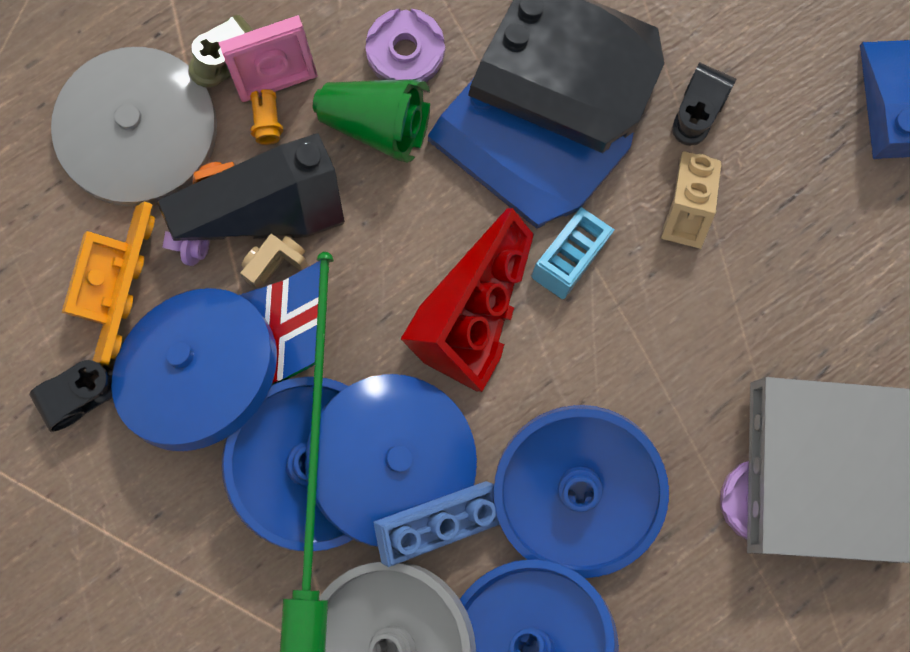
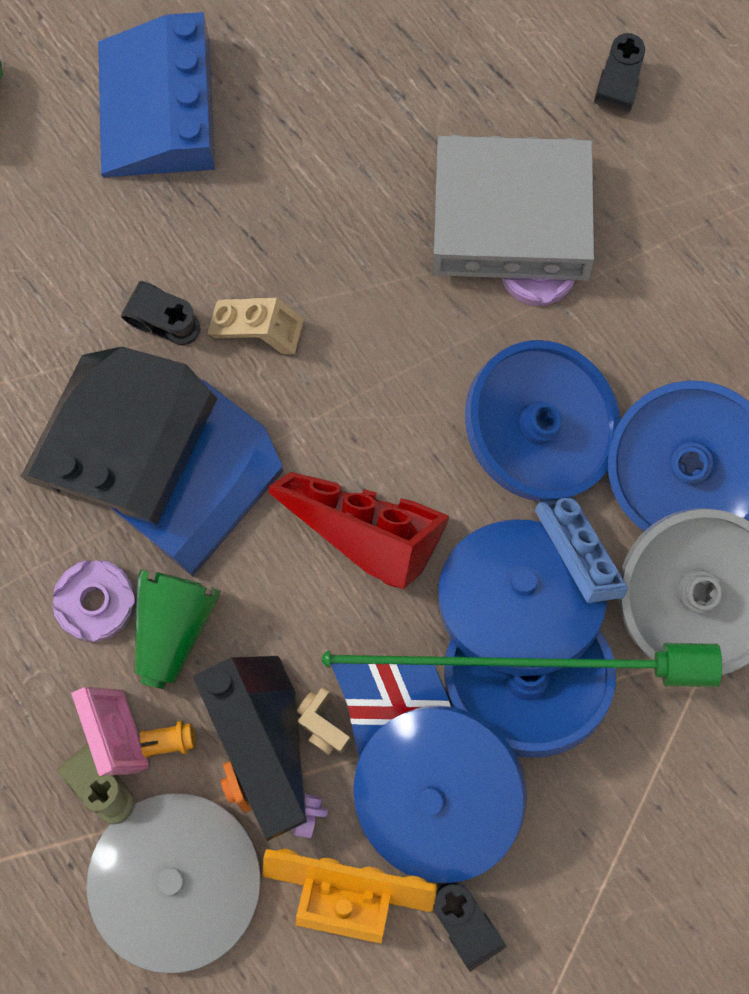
camera: 85 degrees left, 5 degrees down
(558, 274) = (330, 448): medium azure slope -> none

